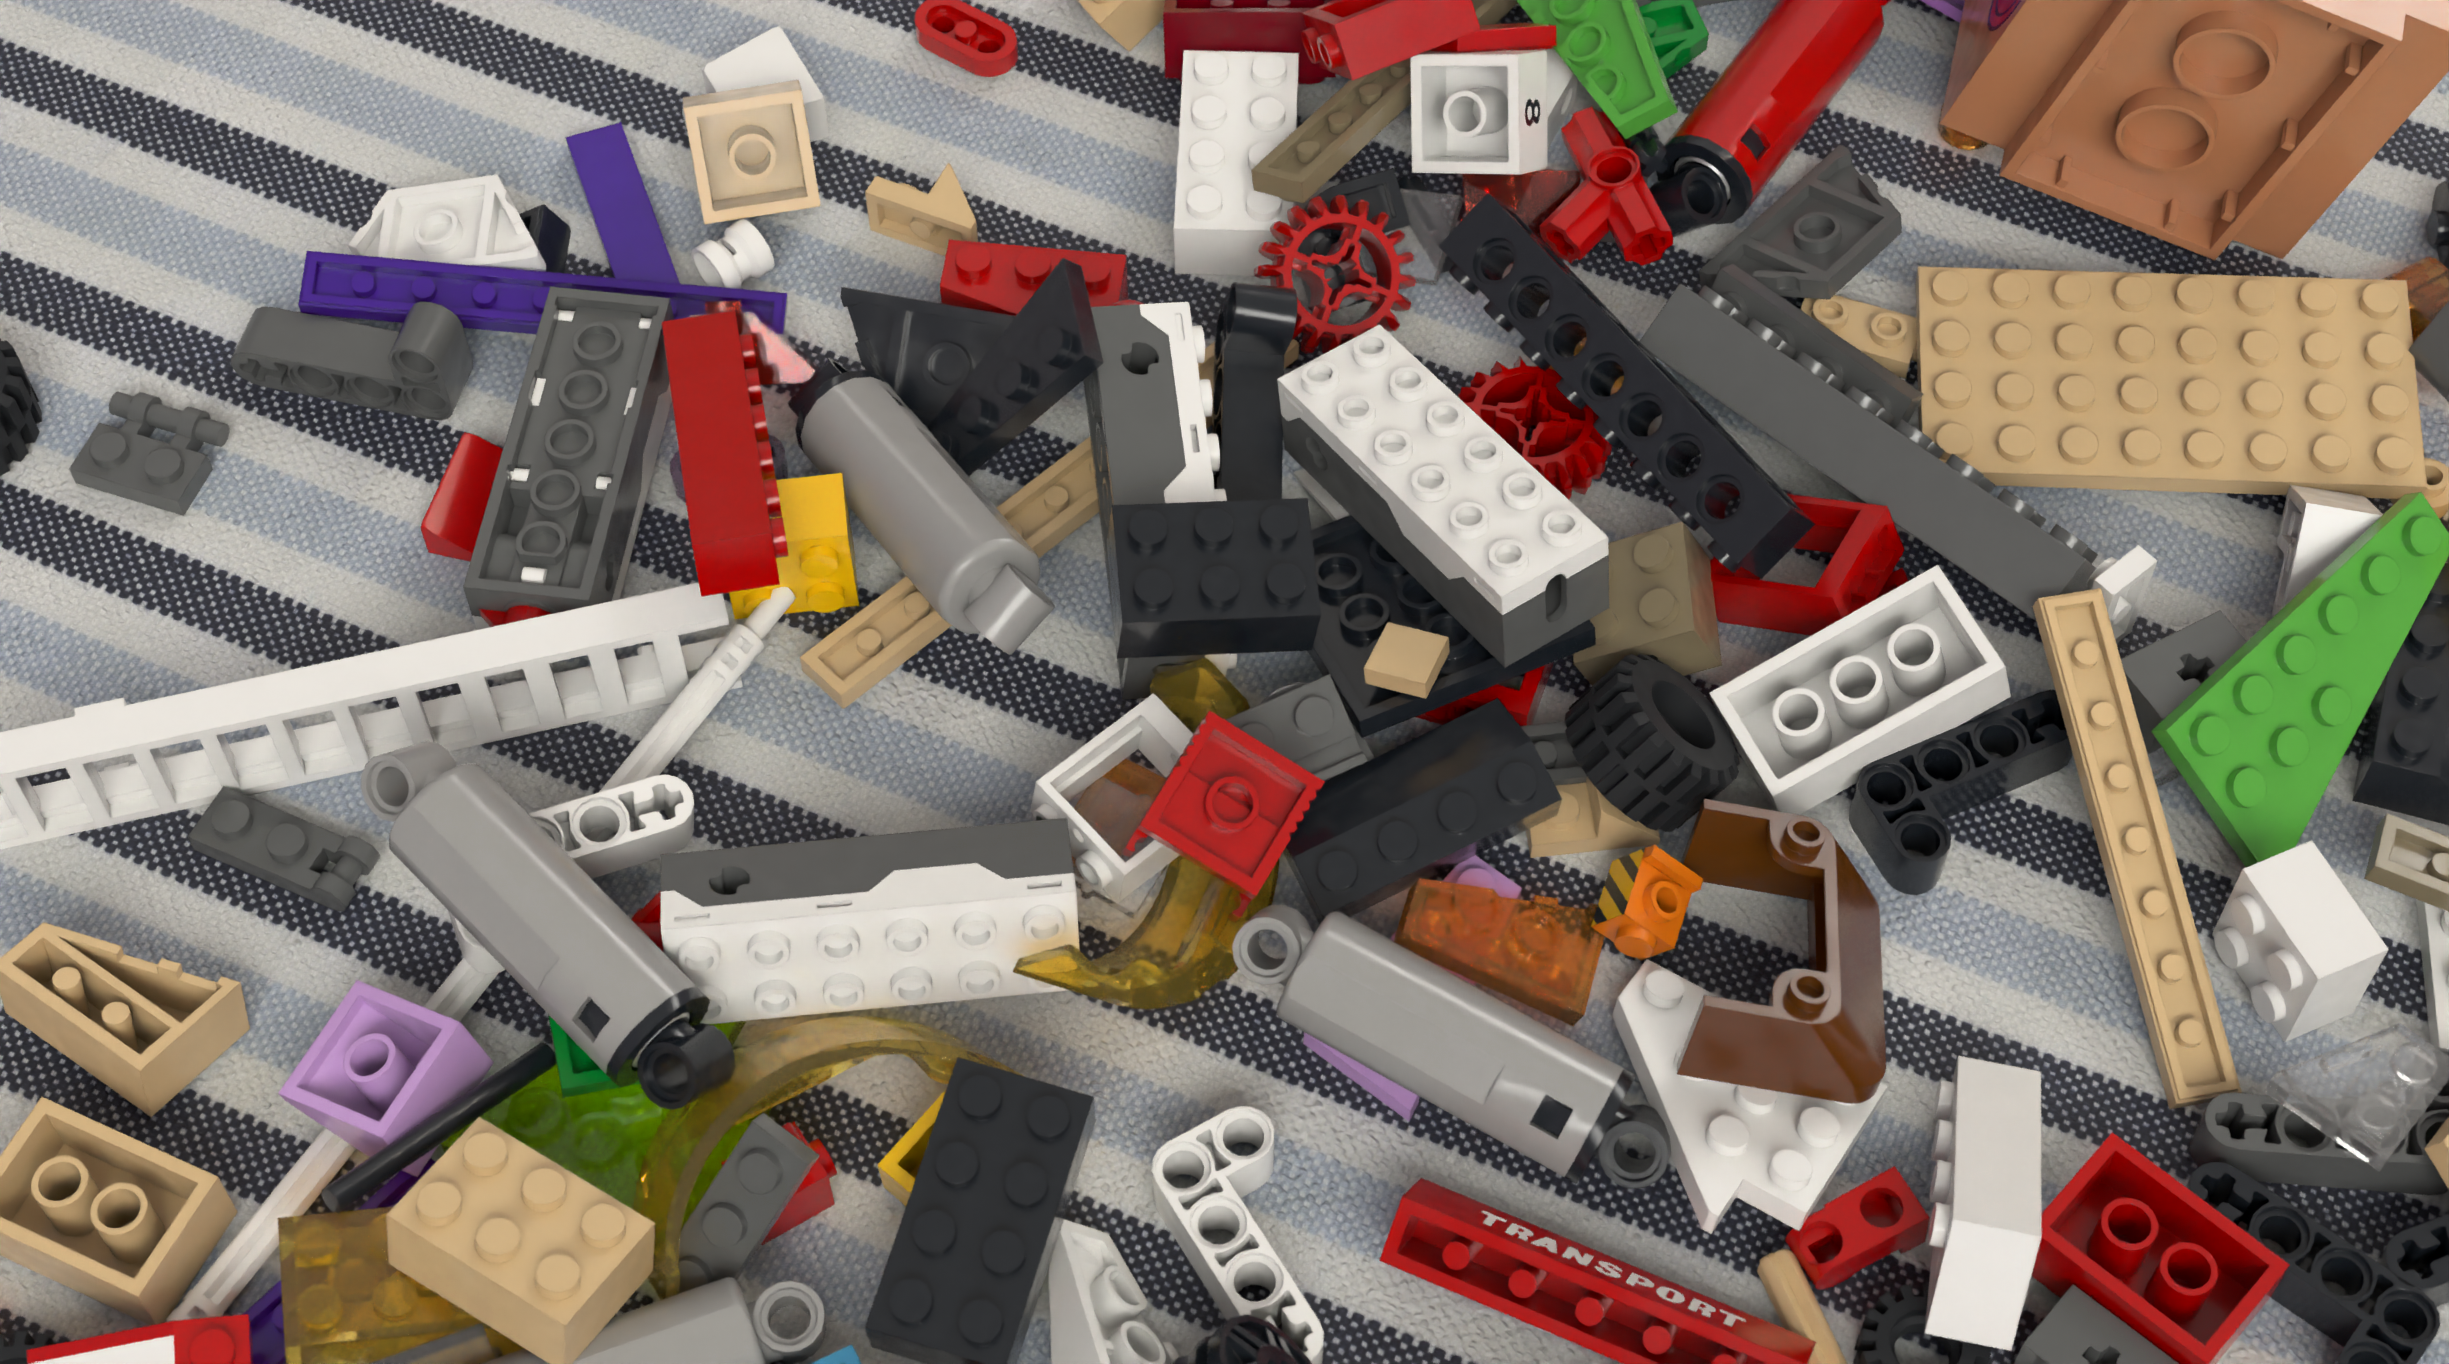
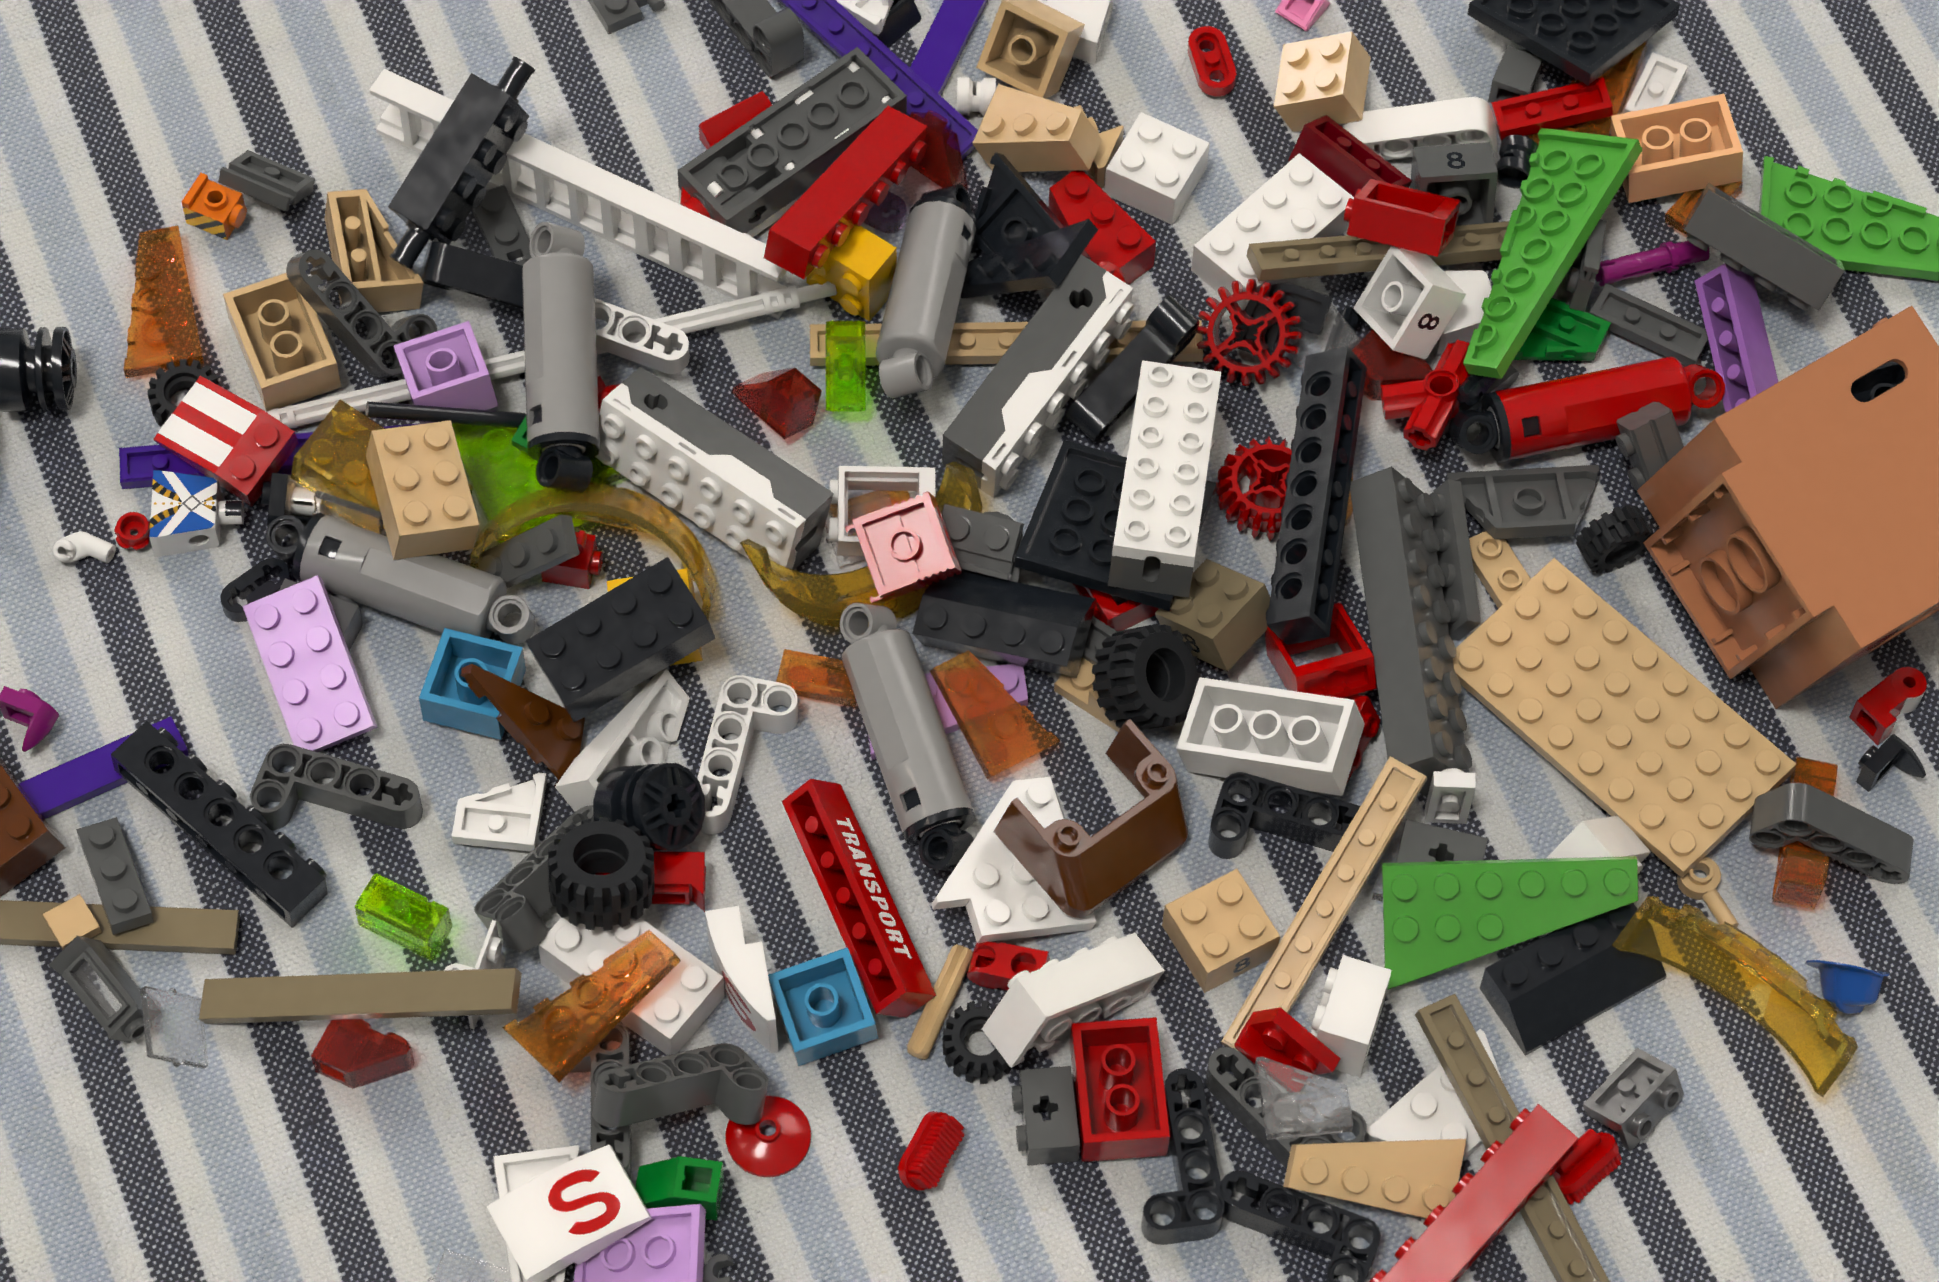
camera: 40 degrees right, 5 degrees up
(93, 1076) = (353, 307): none -> dark grey beam
(165, 779) = (460, 161): none -> black brick
(310, 914) = (472, 273): none -> black beam
(854, 770) = (781, 399): none -> clear red slope
(861, 237) = (1036, 133): none -> tan wedge
(906, 665) = (845, 366): none -> clear neon green brick
(1031, 182) = (1156, 168): none -> white brick
(1212, 578) = (1001, 432): black brick -> none
(1250, 1069) = (816, 677): none -> clear orange plate
(1406, 660) = (1064, 545): tan tile -> none
(1504, 37) = (1459, 270): red tile -> none
(1645, 902) = (1056, 746): orange brick -> none
(1892, 77) = (1648, 441): none -> dark grey brick
(1954, 200) = (1614, 539): none -> black tyre
(2039, 972) = (1220, 930): none -> tan brick
(2268, 1035) = (1284, 1040): none -> red bracket
(2391, 178) = (1896, 694): none -> red leg

